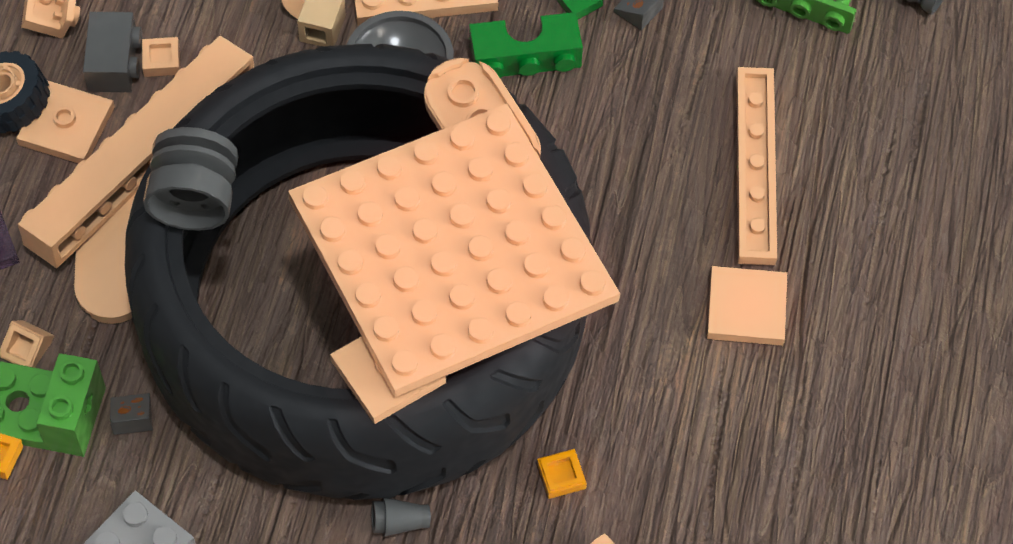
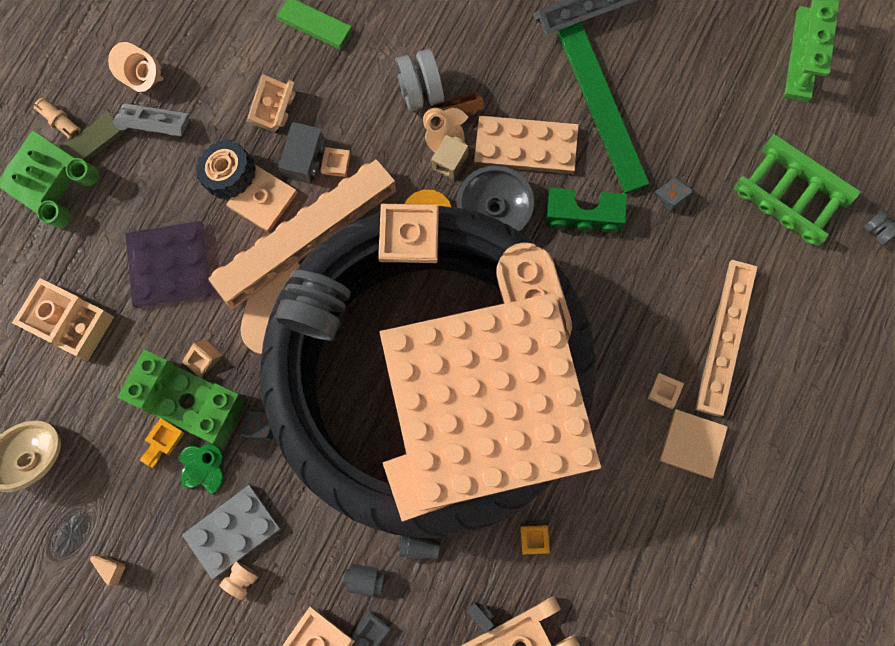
camera: 20 degrees right, 15 degrees up
(59, 489) = (199, 470): none -> green plate
(297, 77) = (408, 233): none -> light nougat plate
(692, 246) = (665, 390): none -> light nougat plate

